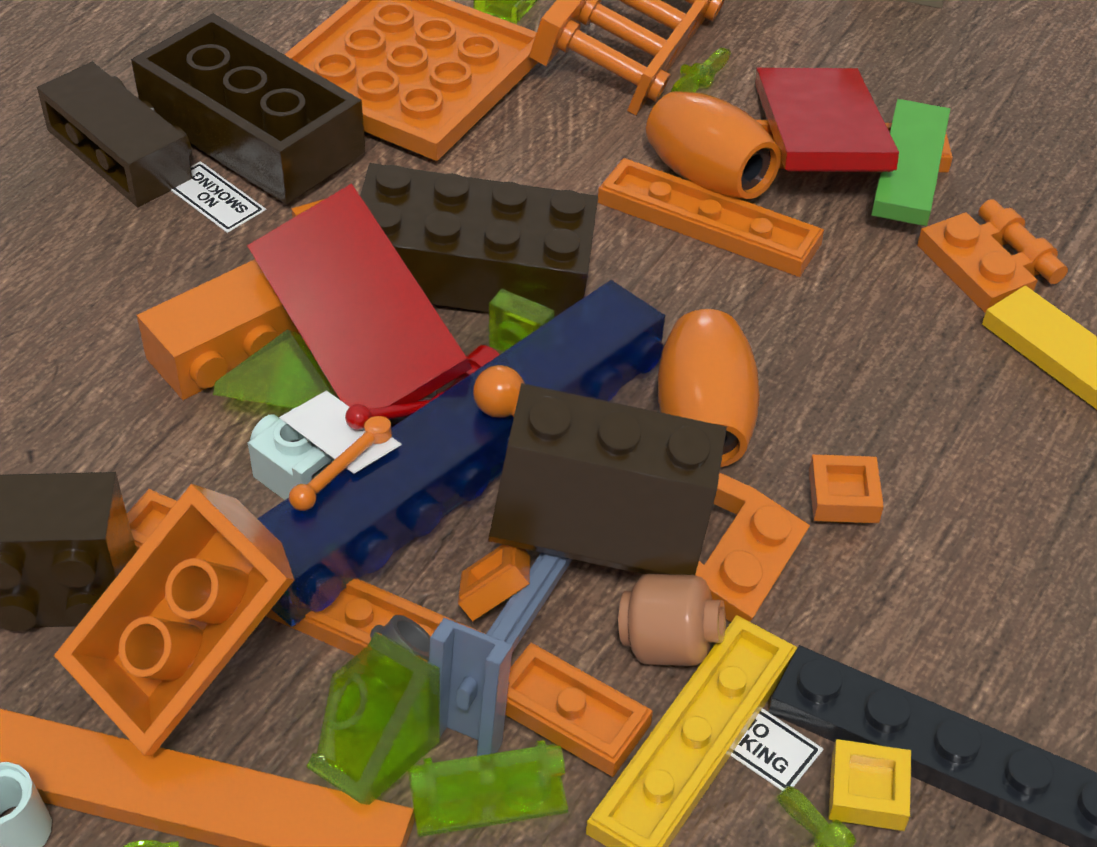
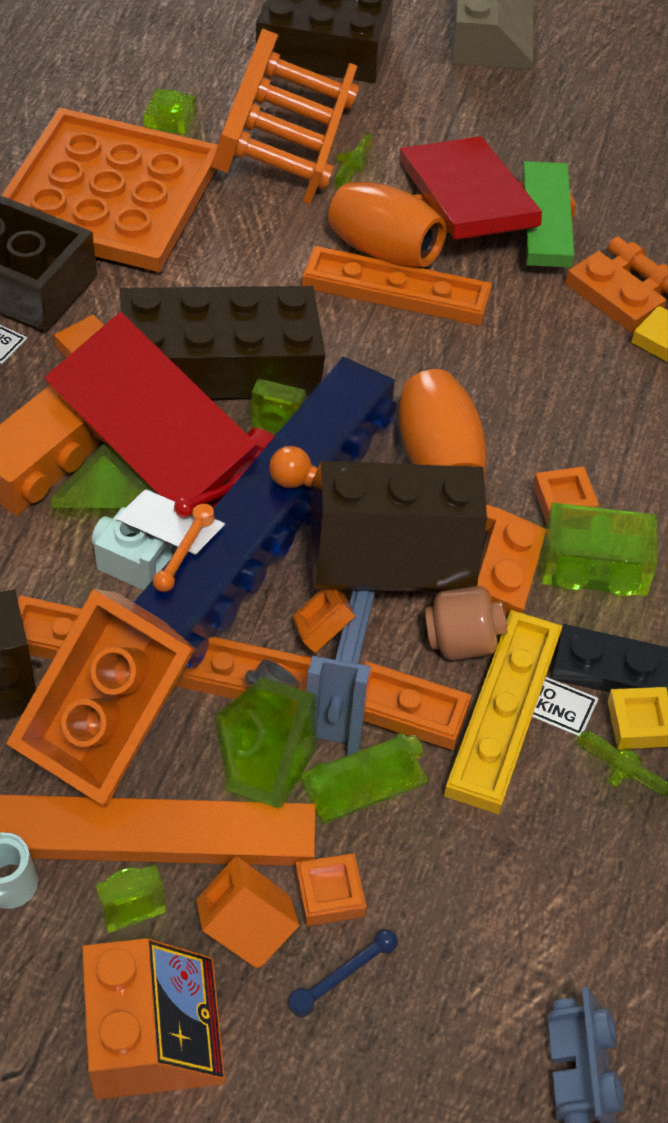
camera: 15 degrees left, 5 degrees up
(870, 561) = (600, 549): none -> clear neon green brick

